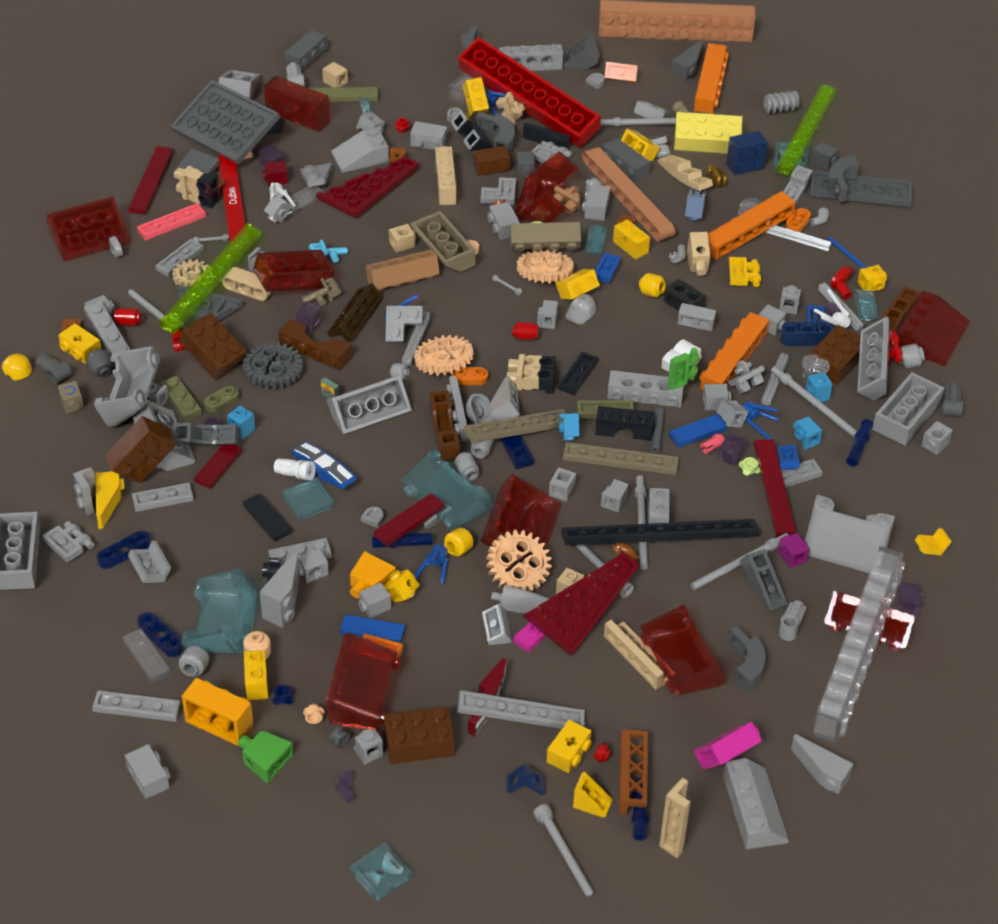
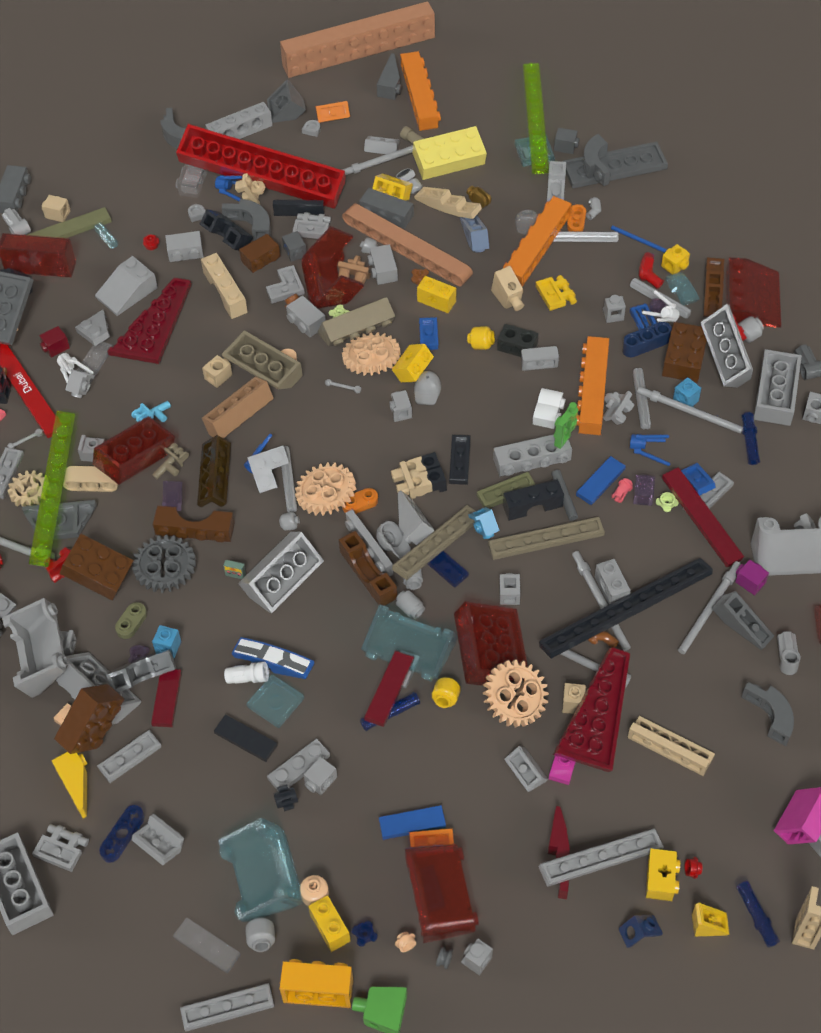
camera: 20 degrees left, 10 degrees up
(85, 489) = (49, 782): light grey bracket -> none
(159, 626) = (220, 928): clear blue beam -> none
(181, 398) = (90, 635): olive plate -> none
(270, 154) = (39, 323): clear purple brick -> none
(280, 593) = (311, 832): light grey slope -> none
(343, 786) = (474, 1009): clear purple arm -> none
(369, 572) = (382, 765): light orange torso -> none
(370, 120) = (120, 251): light grey brick -> none
(373, 516) = (348, 695): light grey tile -> none
(374, 600) = (399, 790): light grey brick -> none
(397, 150) = (161, 275): dark orange plate -> none
(401, 585) = (418, 765): yellow brick -> none
(419, 735) = (518, 923): reddish brown brick -> none
(436, 557) = (433, 717): blue plant -> none
(475, 96) = (210, 187): yellow brick -> none
(518, 600) = (537, 732): light grey piece -> none
(525, 331) = (388, 432): red brick -> none
(544, 815) = (677, 959): light grey piece -> none
(596, 240) = (402, 306): clear light blue slope -> none
(614, 496) = (564, 582): light grey brick -> none
(625, 771) = (725, 880): dark orange fence -> none
(678, 256) = (488, 294): light grey arm -> none
(681, 652) = (714, 732): clear red windscreen -> none
(714, 394) = (600, 438): light grey brick -> none
(732, 413) = (624, 450): light grey brick -> none
(746, 152) = (496, 163): dark blue brick -> none
(776, 319) = (612, 332): light grey brick -> none
(781, 101) = (498, 95): light grey piece -> none
(807, 432) = (700, 445): dark azure brick -> none
(813, 364) = (675, 374): clear arm -> none

